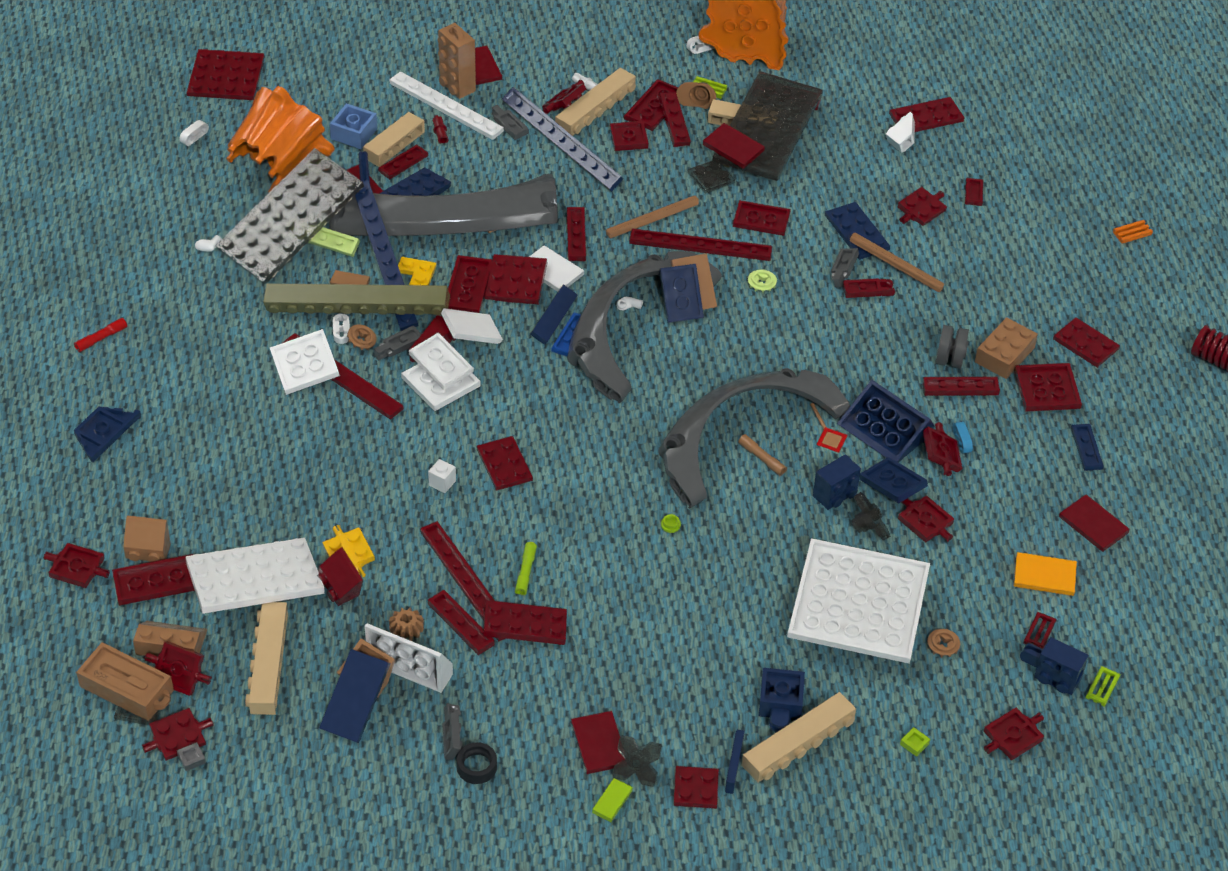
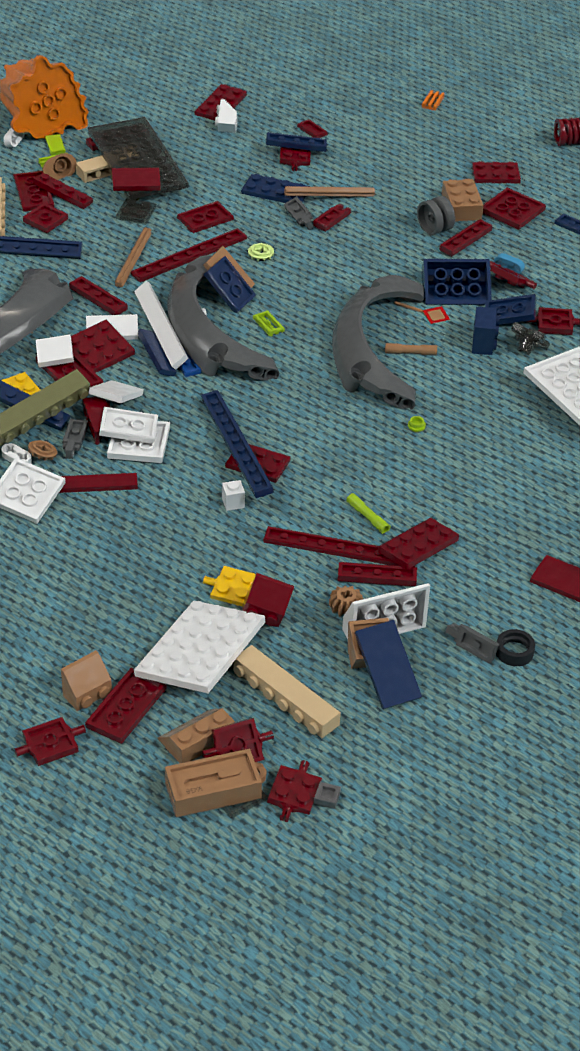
camera: 45 degrees left, 5 degrees down
(472, 259) = (54, 350): none -> white tile
(497, 435) = (237, 444): none -> dark blue plate
(586, 292) = (161, 325): none -> white tile
(676, 360) = (266, 325): none -> lime tile
(729, 71) = (55, 144): none -> lime tile
(930, 195) = (296, 142): none -> dark blue tile

